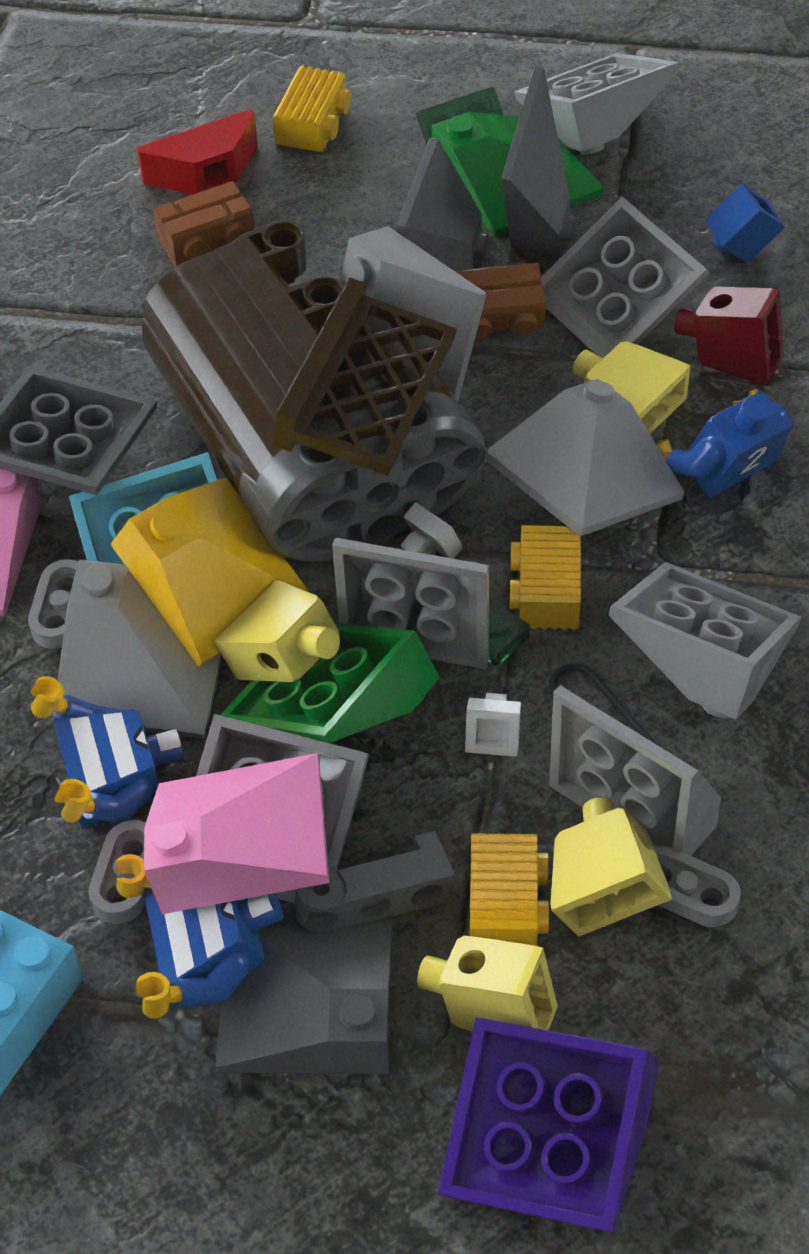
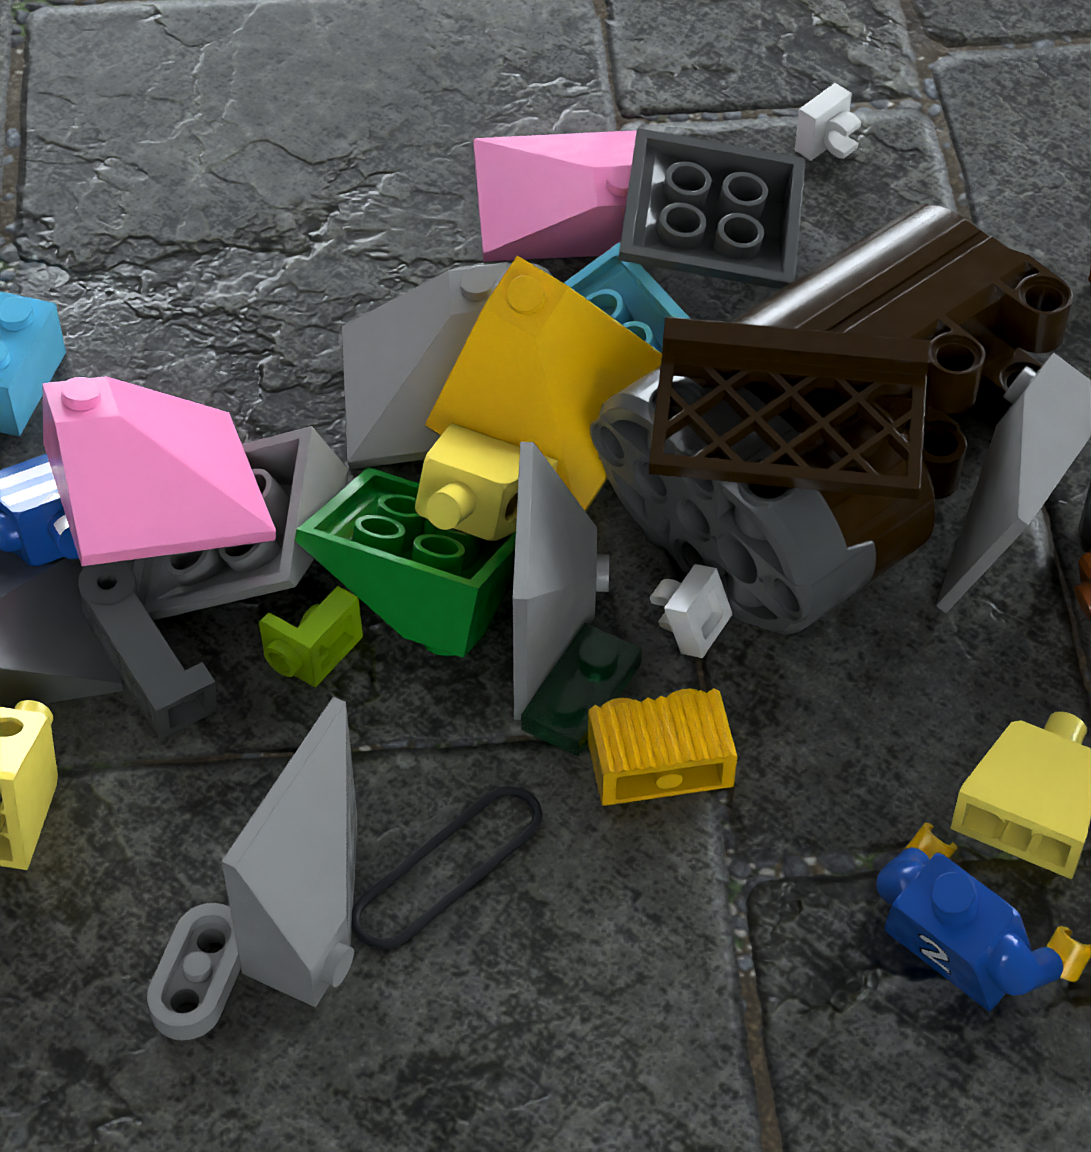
camera: 75 degrees right, 0 degrees up
(104, 756) = (277, 374): torso -> none
(395, 770) = (318, 643): none -> lime bracket
(493, 725) = (406, 725): white tile -> none
(506, 888) = (156, 776): yellow brick -> none
(587, 459) = (856, 750): light grey slope -> none
(605, 869) = (178, 864): light yellow torso -> none
(705, 636) = (607, 936): light grey slope -> none

